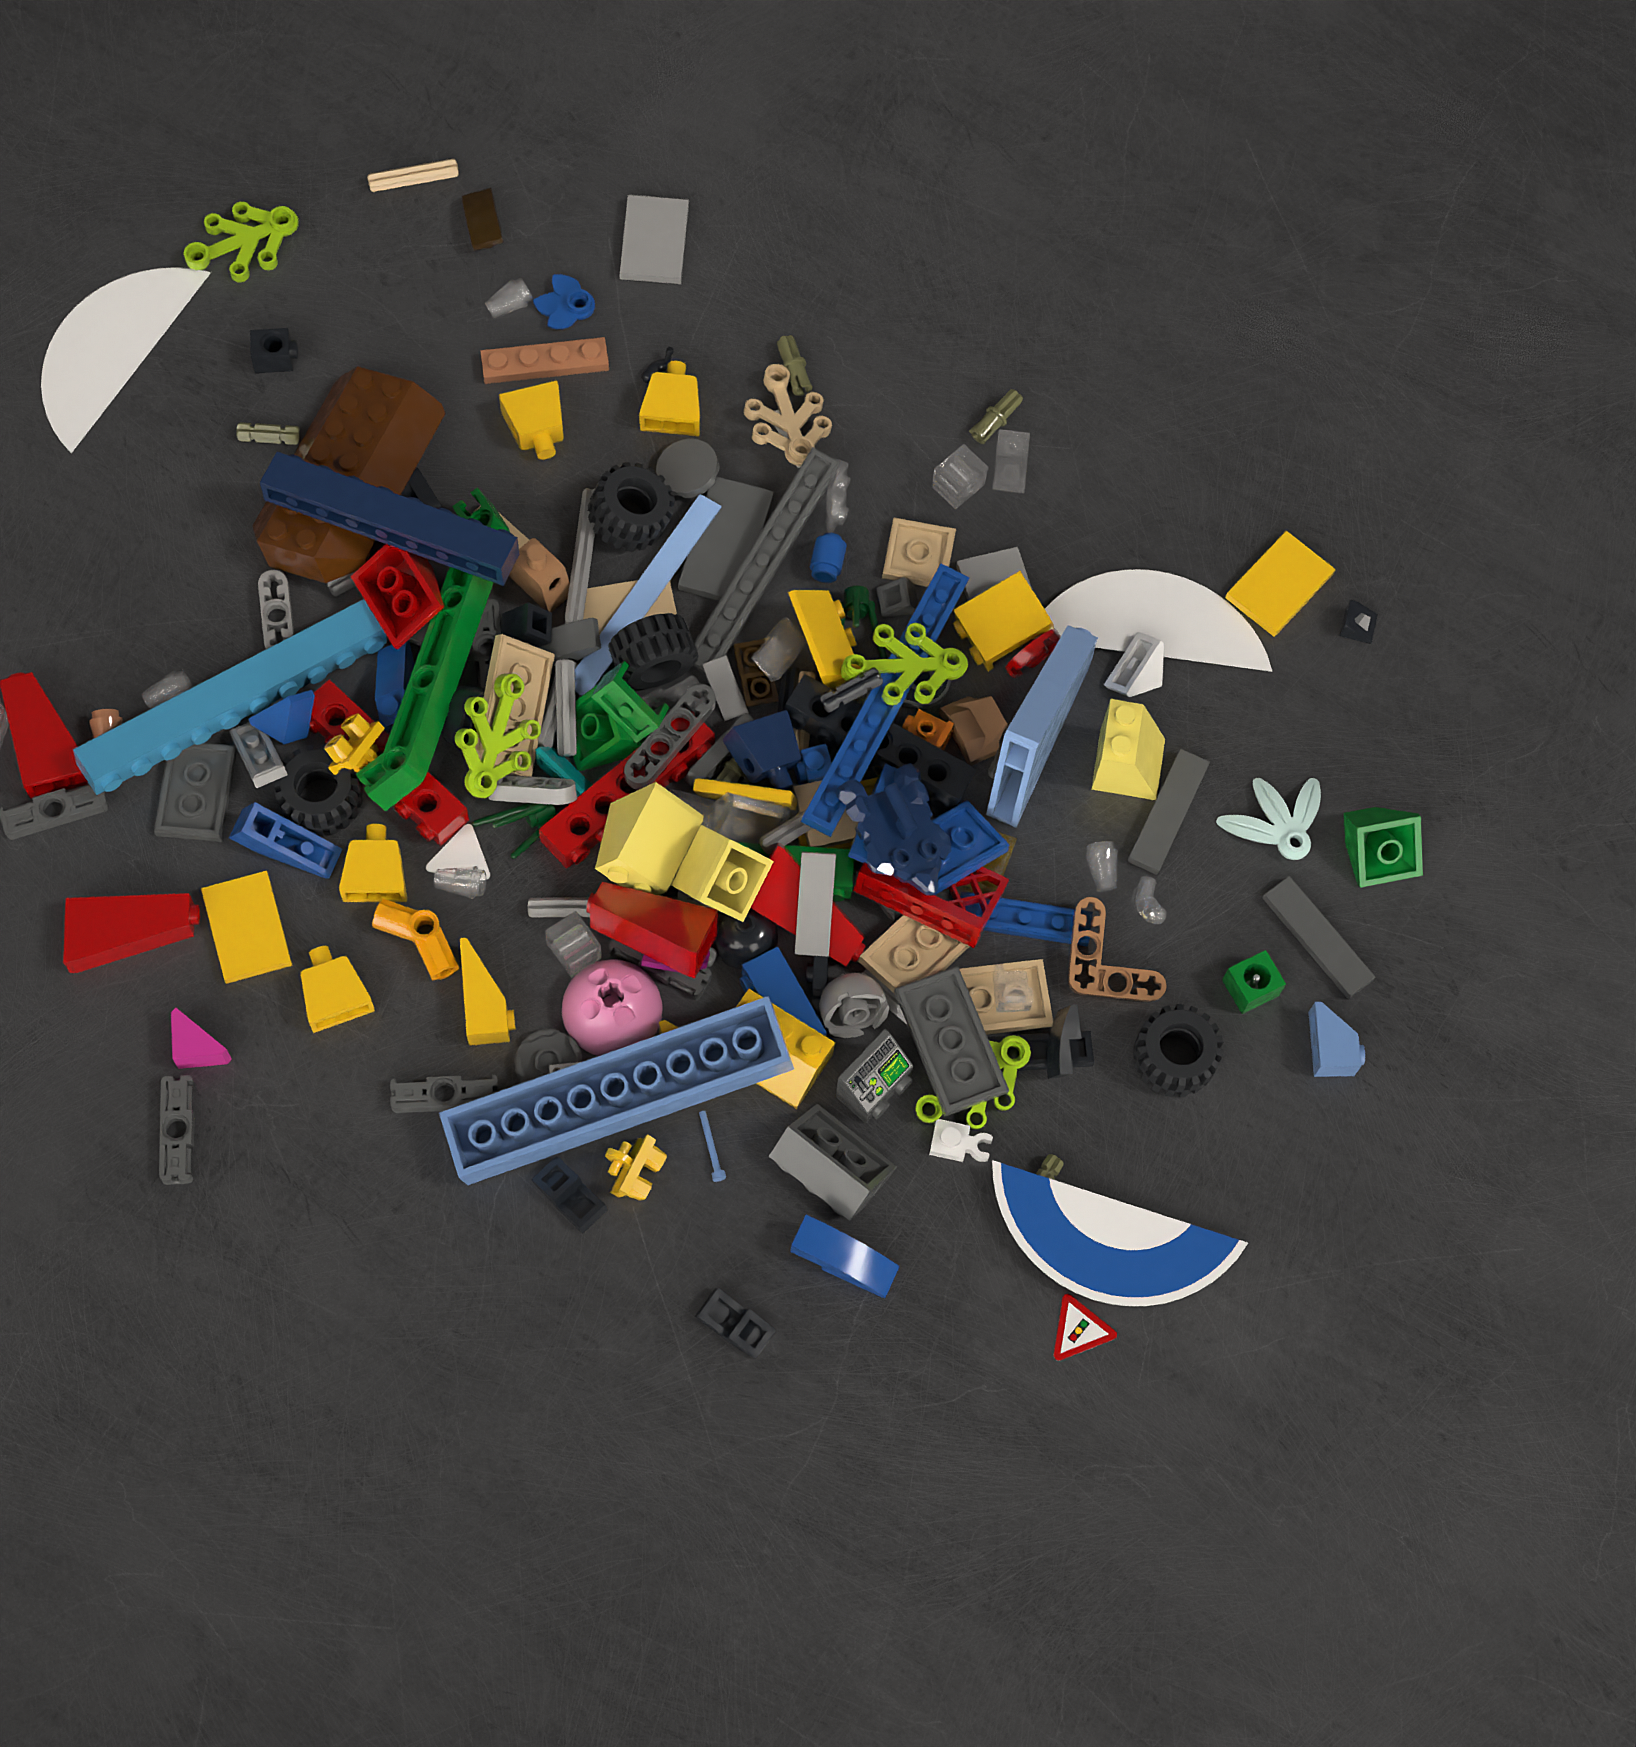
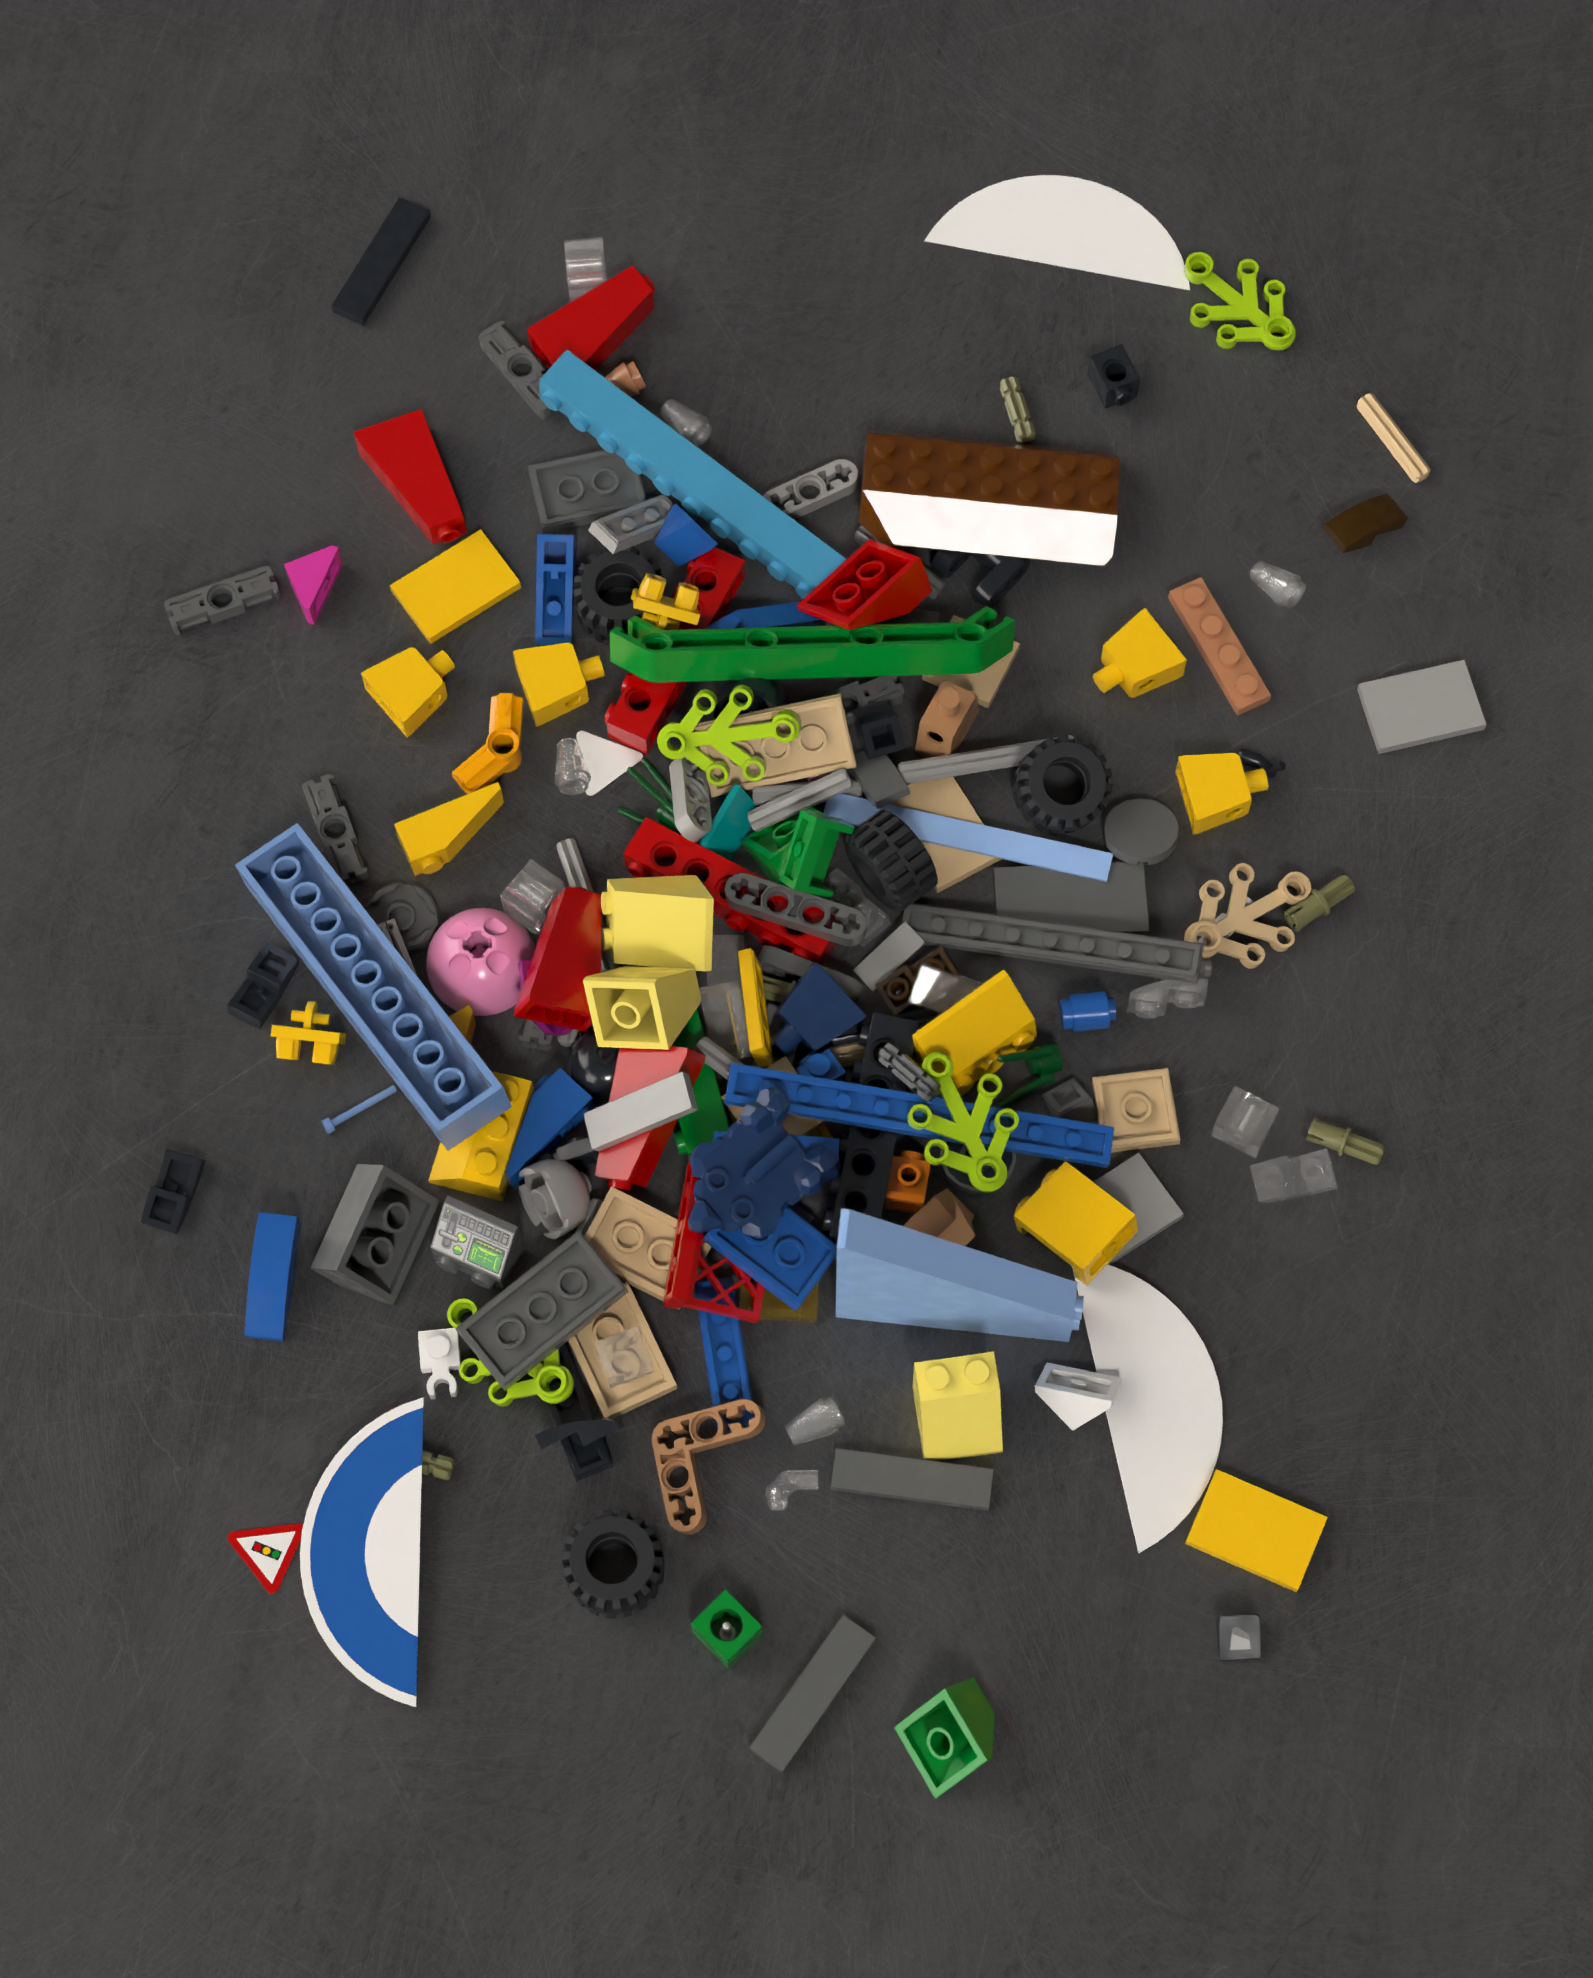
camera: 80 degrees right, 0 degrees up
(390, 518) = (928, 542): dark blue brick -> none
(562, 302) = (1297, 638): blue plate -> none
(1033, 653) = (1035, 1257): red tile -> none
(1284, 825) = (952, 1602): light aqua plant -> none
(1333, 1044) = (680, 1741): medium blue slope -> none

